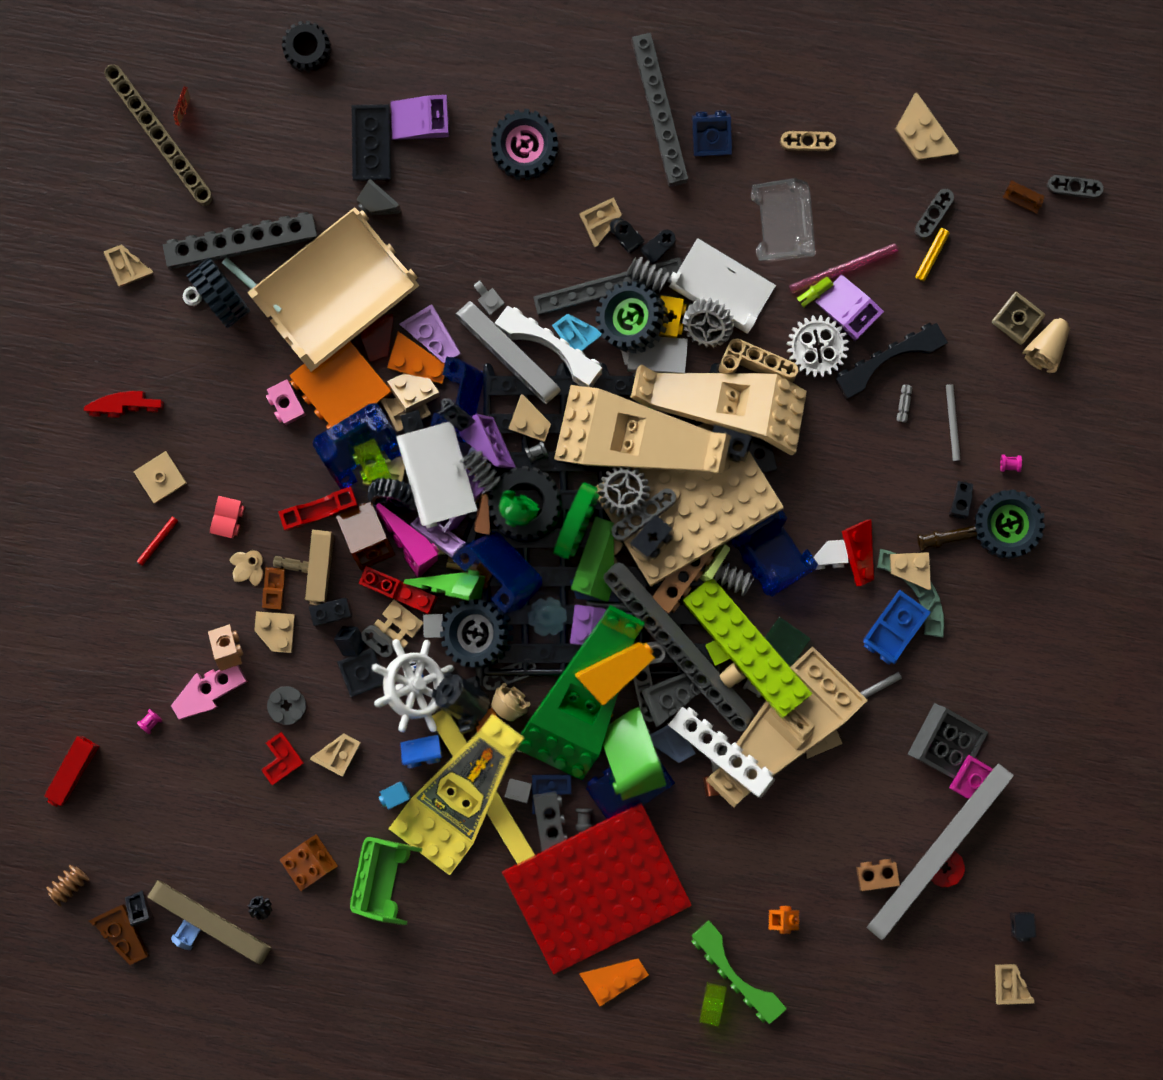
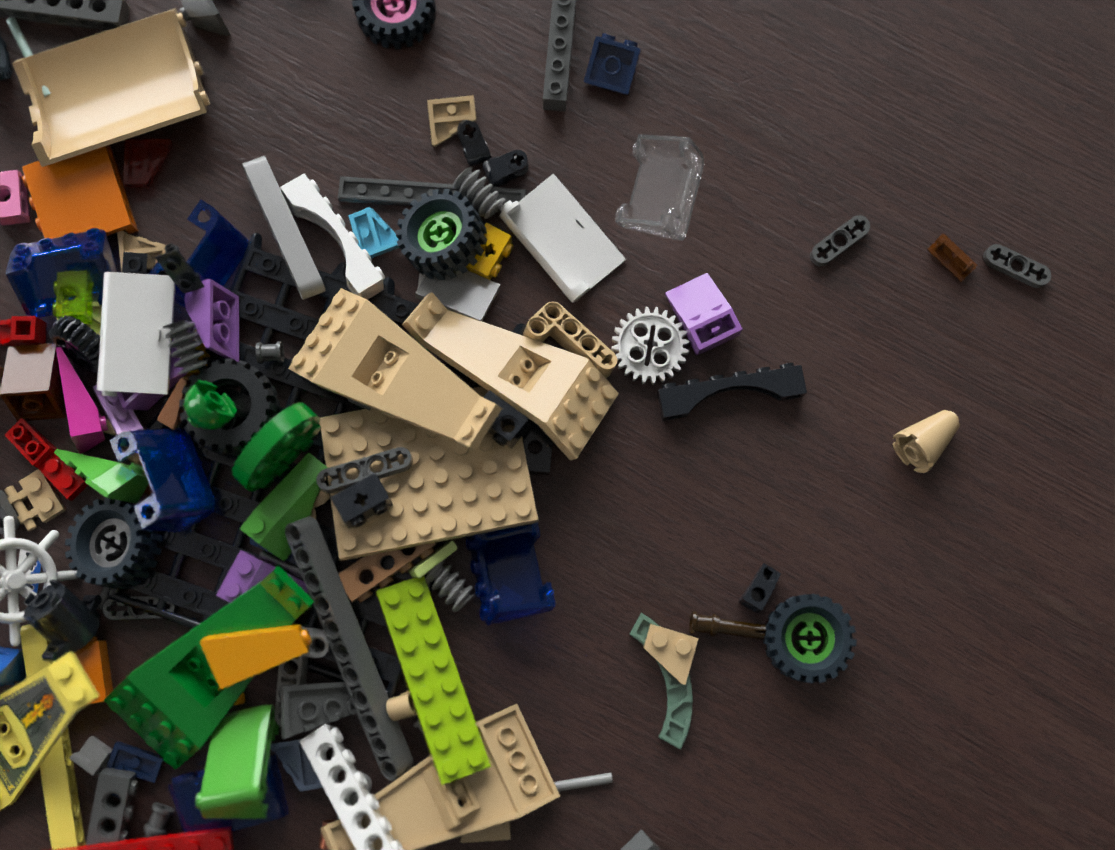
camera: 15 degrees right, 5 degrees down
(412, 390) = (156, 231): tan plate -> none
(413, 360) = (175, 201): orange wing -> none
(432, 333) = (208, 176): lavender wing -> none
(432, 625) = (65, 514): light grey panel -> none
(490, 299) = (289, 162): light grey plate -> none
(509, 703) = (122, 642): tan cone -> none
(529, 421) = (277, 313): tan wing -> none
(547, 616) = (206, 553): clear light blue plant -> none
(632, 493) = (360, 417): light grey gear -> none
(715, 316) = (537, 269): light grey gear -> none
(716, 653) = (394, 671): lime panel -> none
(787, 640) = (486, 687): clear green plate -> none
(815, 291) = (669, 281): lime axle -> none
(821, 147) = (716, 101): tan beam -> none
(833, 554) = (579, 597): white slope -> none
(843, 268) = (712, 267): clear pink piece -> none
(860, 551) = (615, 605): red wing -> none
(895, 627) = (625, 718): blue bracket -> none
(904, 403) = (730, 448): light grey axle -> none
(923, 132) = (858, 146): tan wing -> none
(932, 254) = (822, 286): yellow axle -> none
(953, 422) = (780, 491): light grey bar -> none
(1010, 463) = (835, 564): dark pink bush -> none
(1030, 316) = (900, 379): dark tan brick -> none

